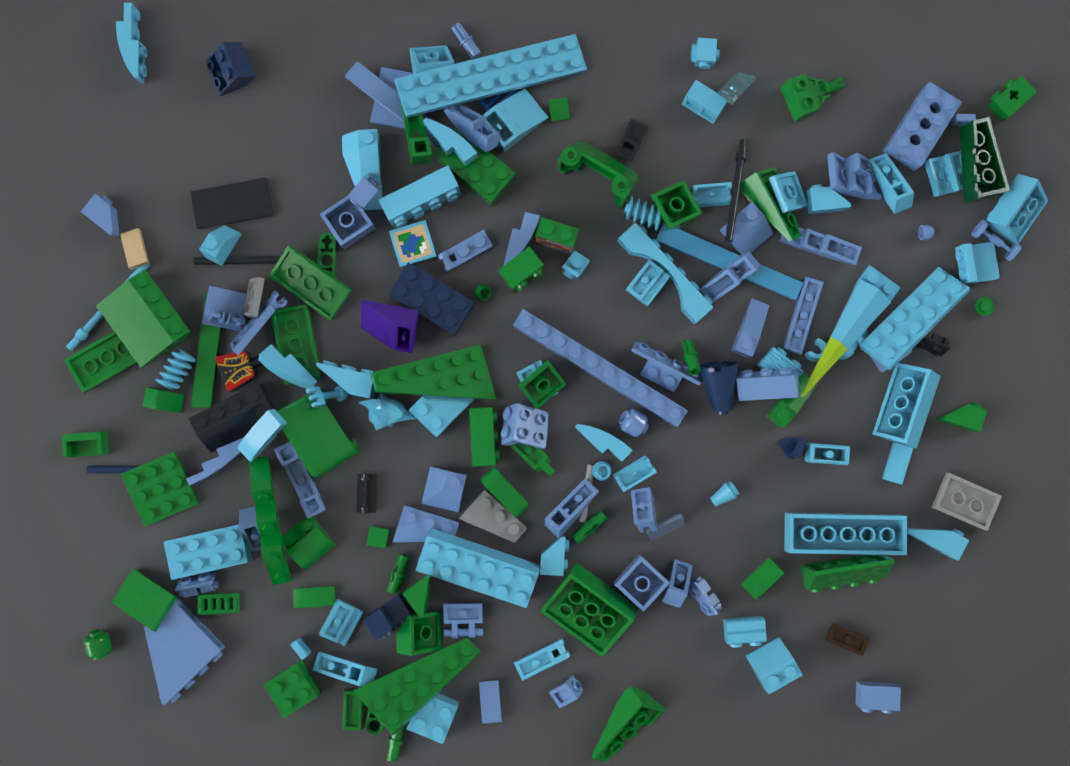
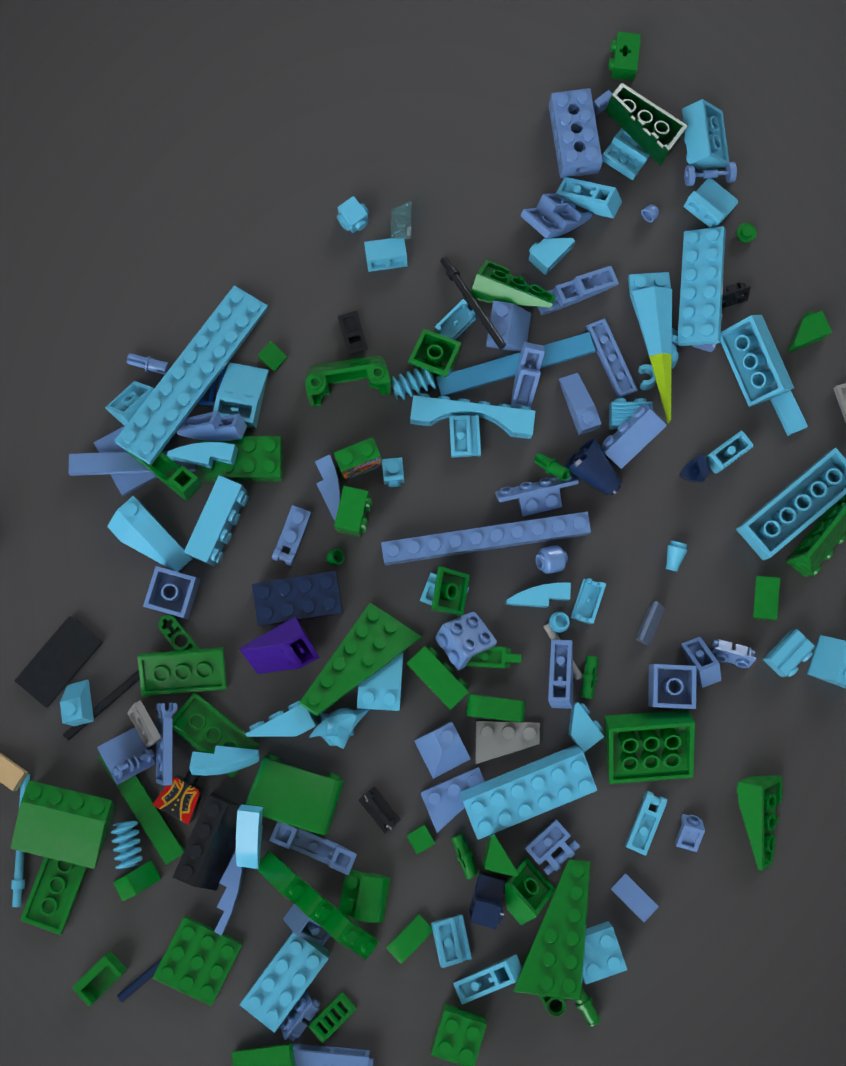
camera: 40 degrees left, 5 degrees down
(300, 648) = (436, 993): medium azure tile -> none
(338, 393) = (285, 744): medium azure hinge -> none
(352, 711) = (525, 1009): green tile -> none
(364, 191) = (166, 555): medium blue slope -> none
(412, 243) = (242, 566): tile -> none
(644, 509) = (622, 623): medium blue hinge -> none
(787, 408) = (665, 443): green slope -> none
(788, 192) = (515, 269): medium azure tile -> none
(807, 94) = (464, 181): green brick -> none

